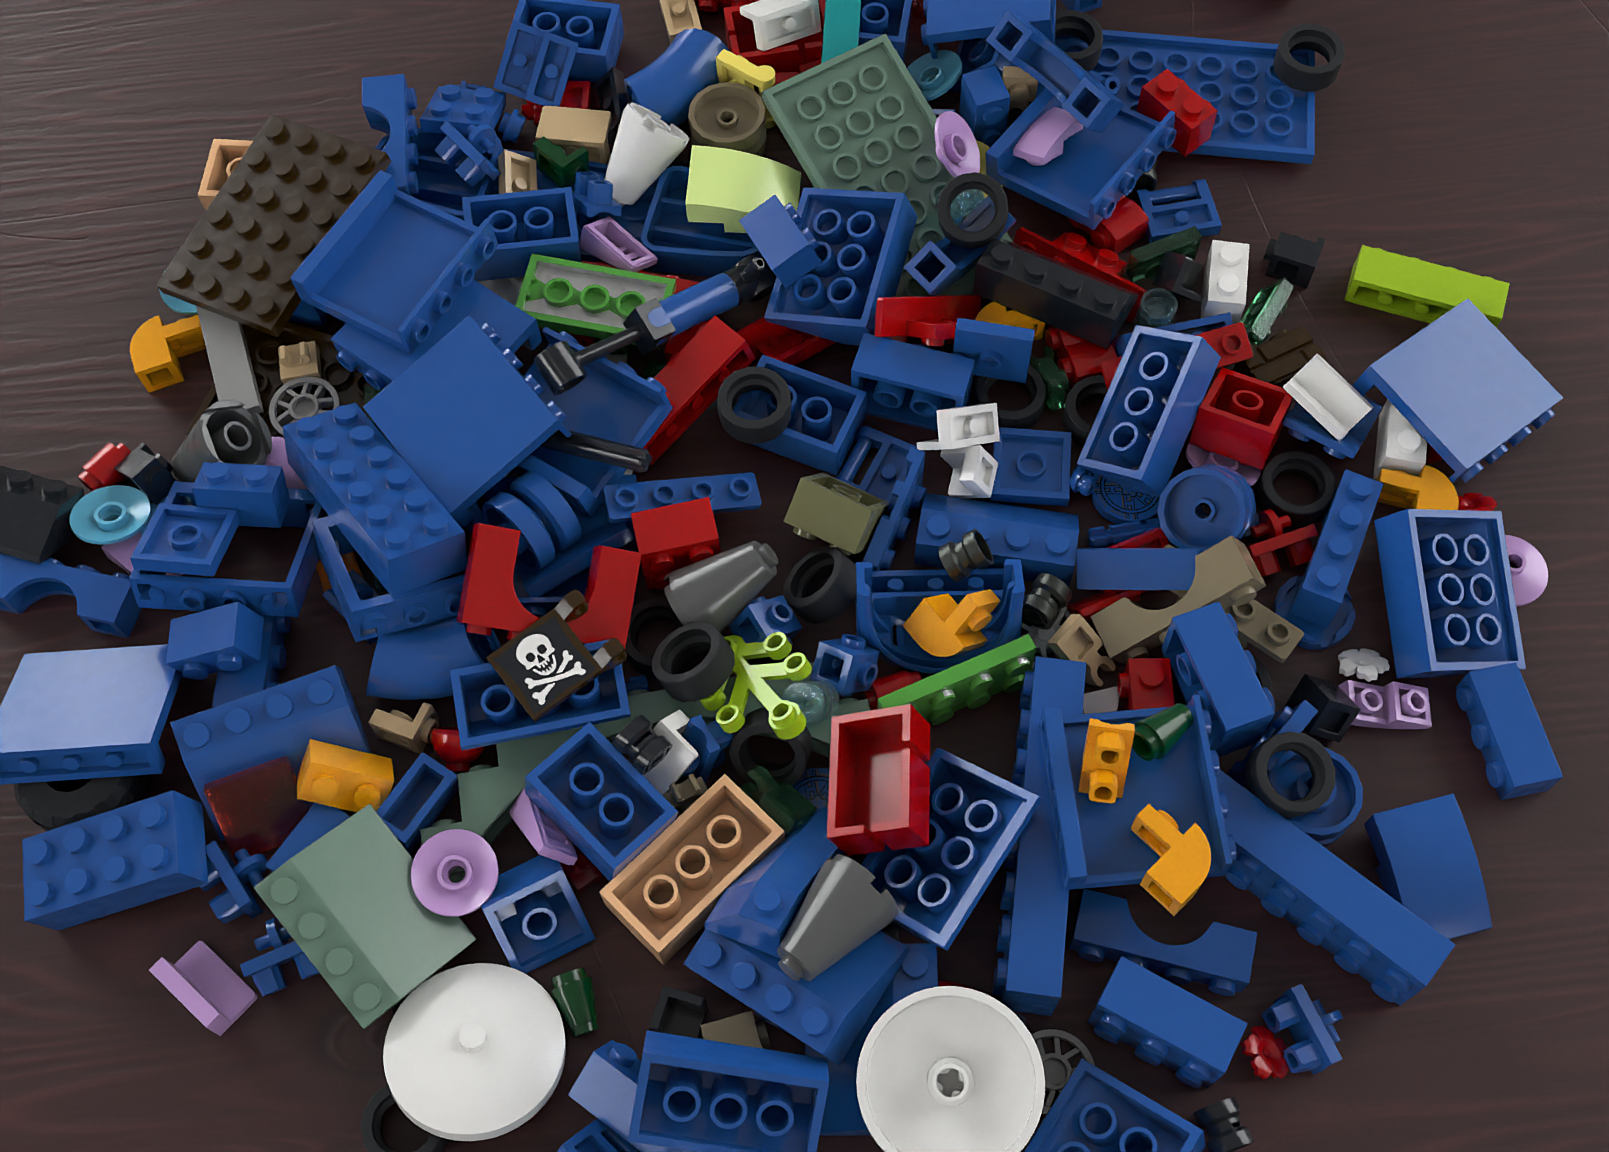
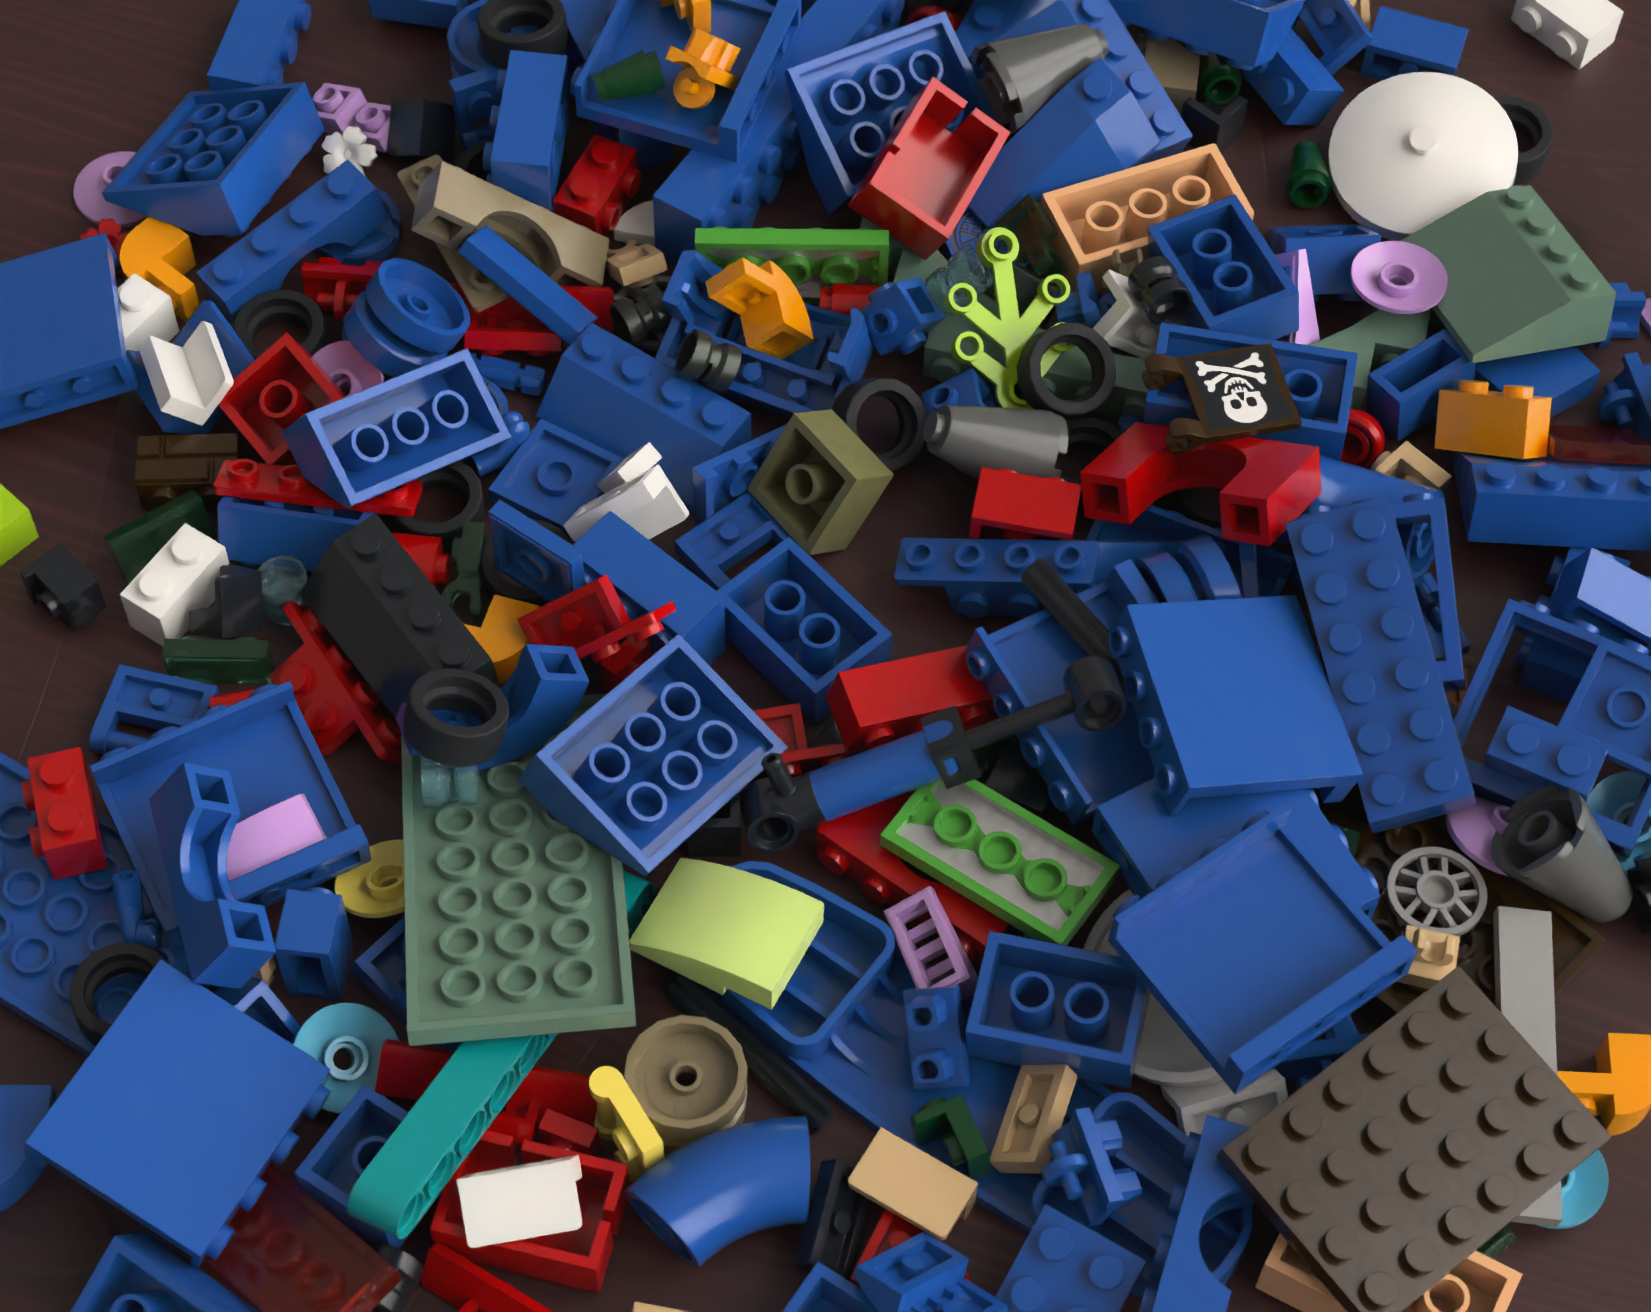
camera: 160 degrees left, 5 degrees down
(511, 126) = (997, 1253): blue plate -> none
(641, 152) = (829, 1061): white cone -> none
(754, 380) = (862, 578): black tyre -> none
(780, 241) = (722, 796): blue brick -> none
(956, 144) = (412, 837): lavender dish -> none

